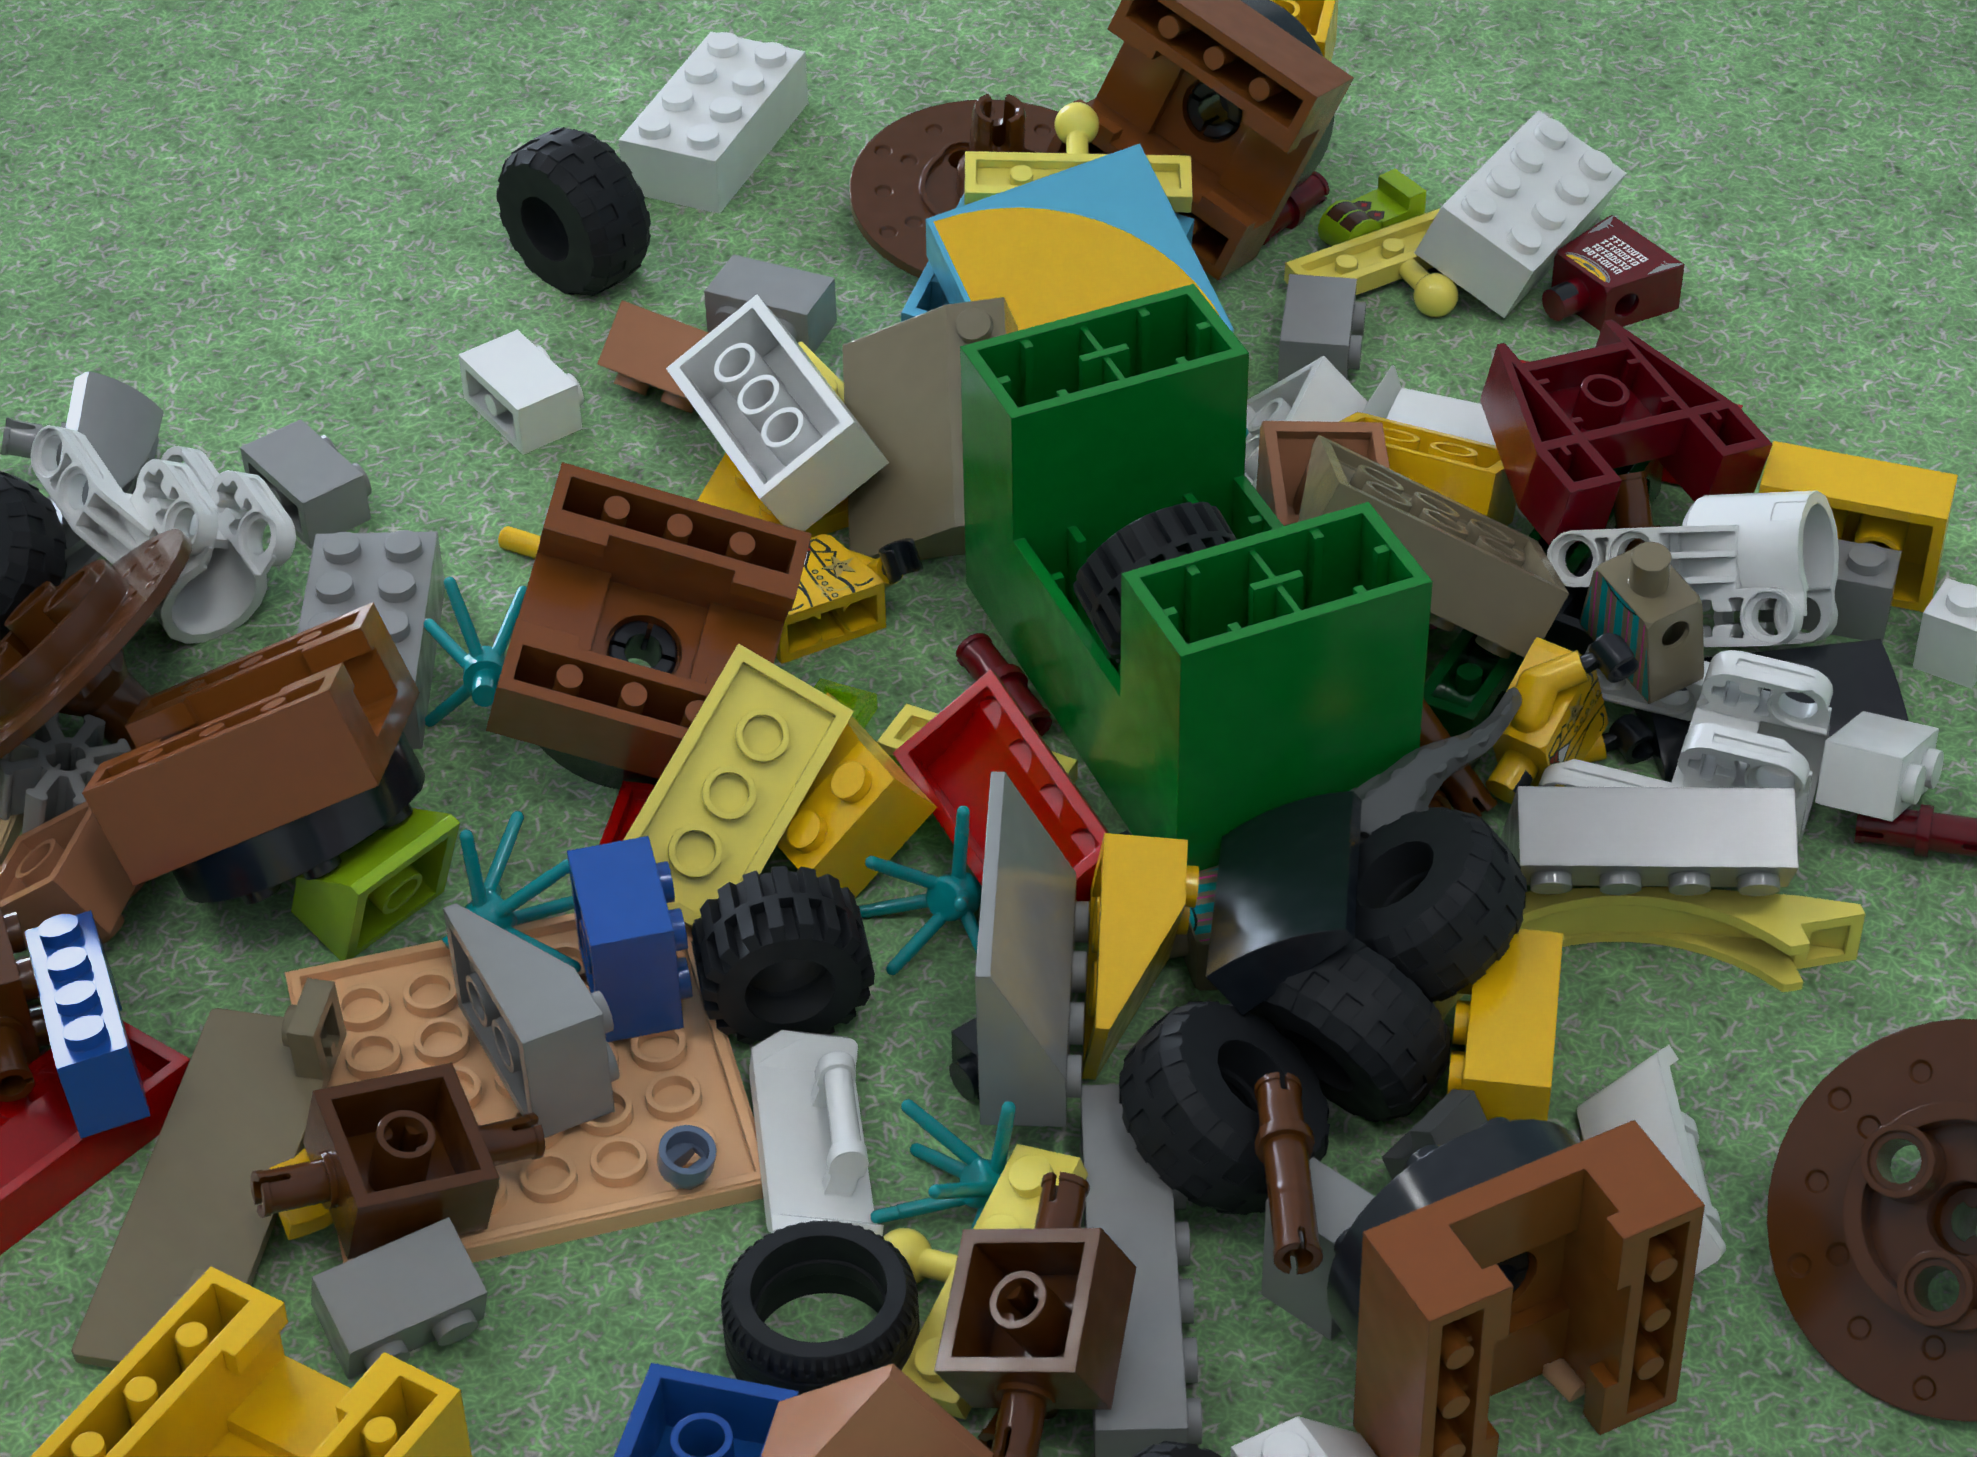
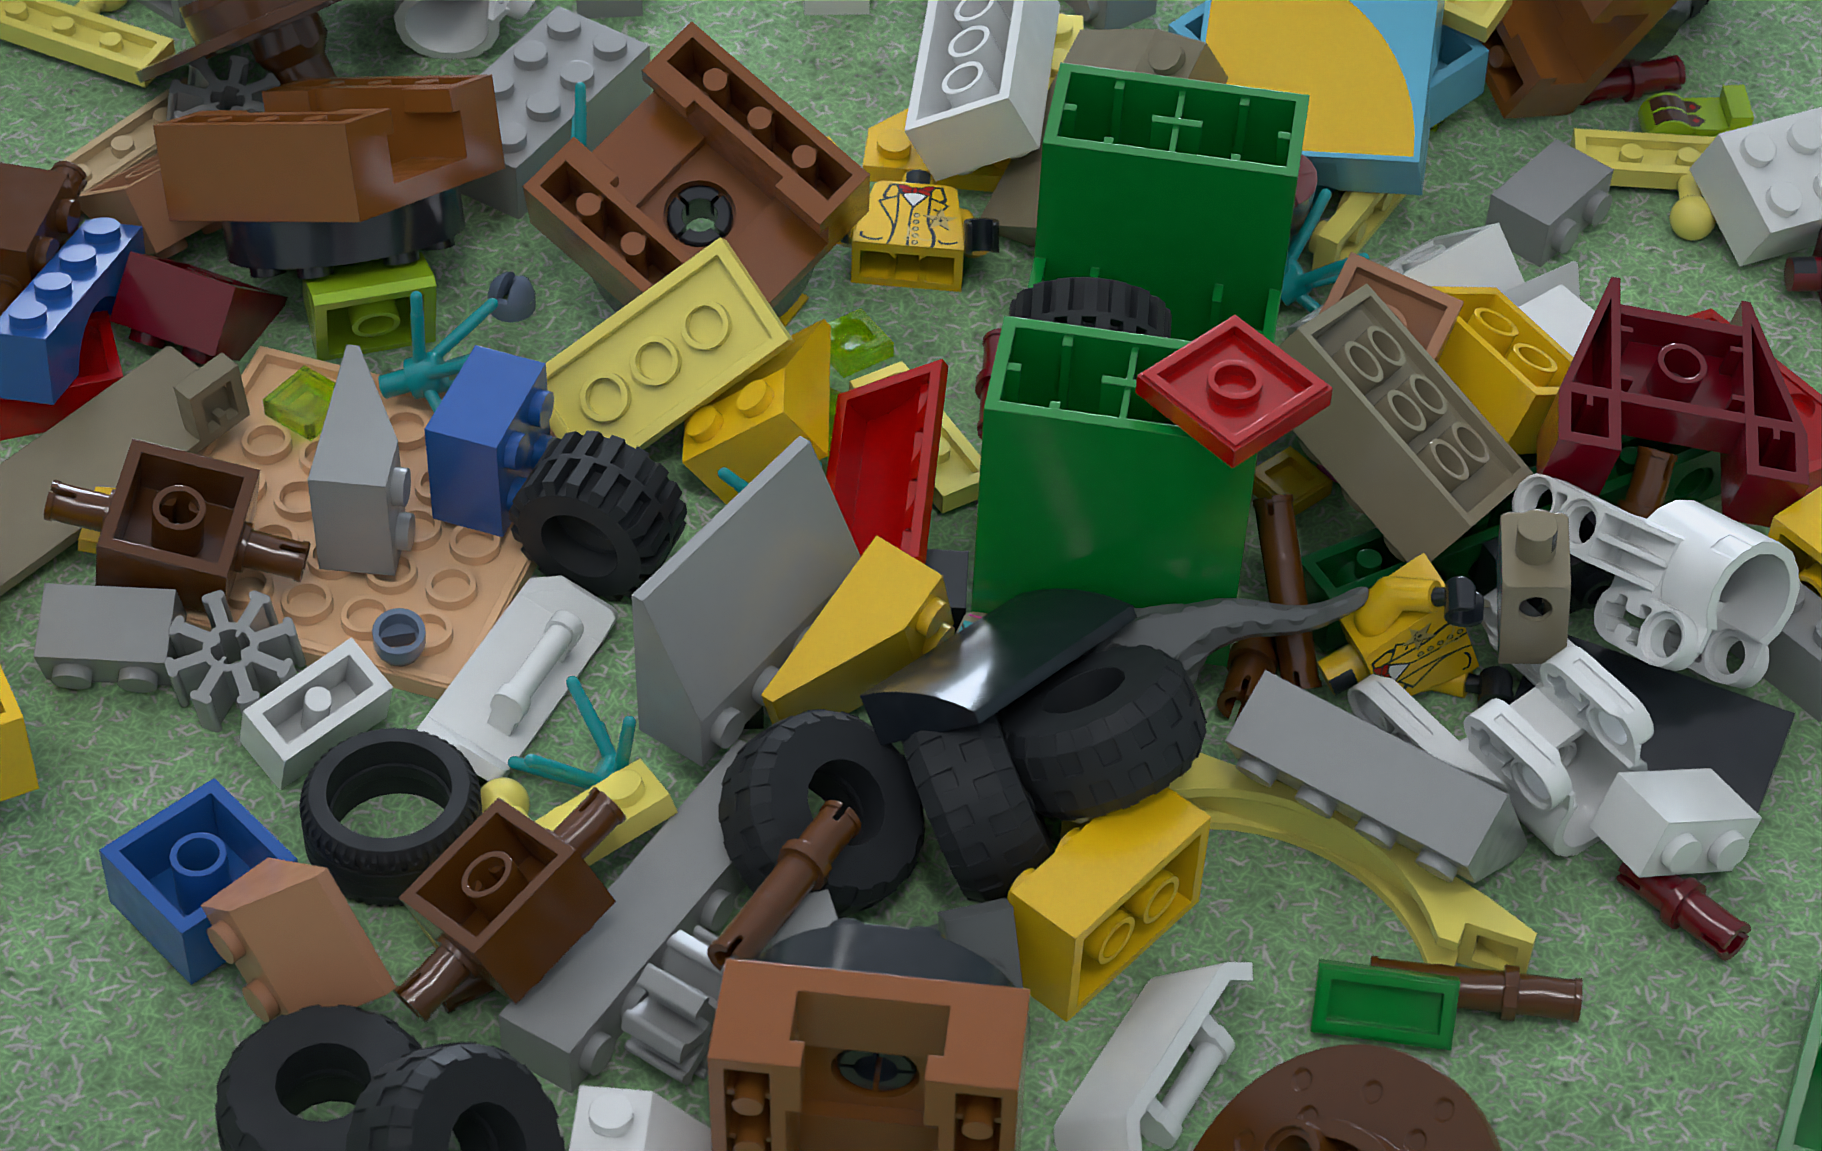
camera: 30 degrees right, 5 degrees up
(190, 968) = (192, 308): none -> dark red slope
(391, 997) = (301, 402): none -> clear neon green tile
(486, 803) = (520, 296): none -> sand blue hinge
(583, 1254) = (205, 658): none -> light grey gear
(671, 1265) = (315, 712): none -> white brick
(1251, 1331) = (678, 1016): none -> light grey gear
(1382, 541) = (1233, 391): none -> red plate
(1783, 1027) = (1385, 1004): none -> green tile
(1859, 969) = (1506, 990): none -> reddish brown pin

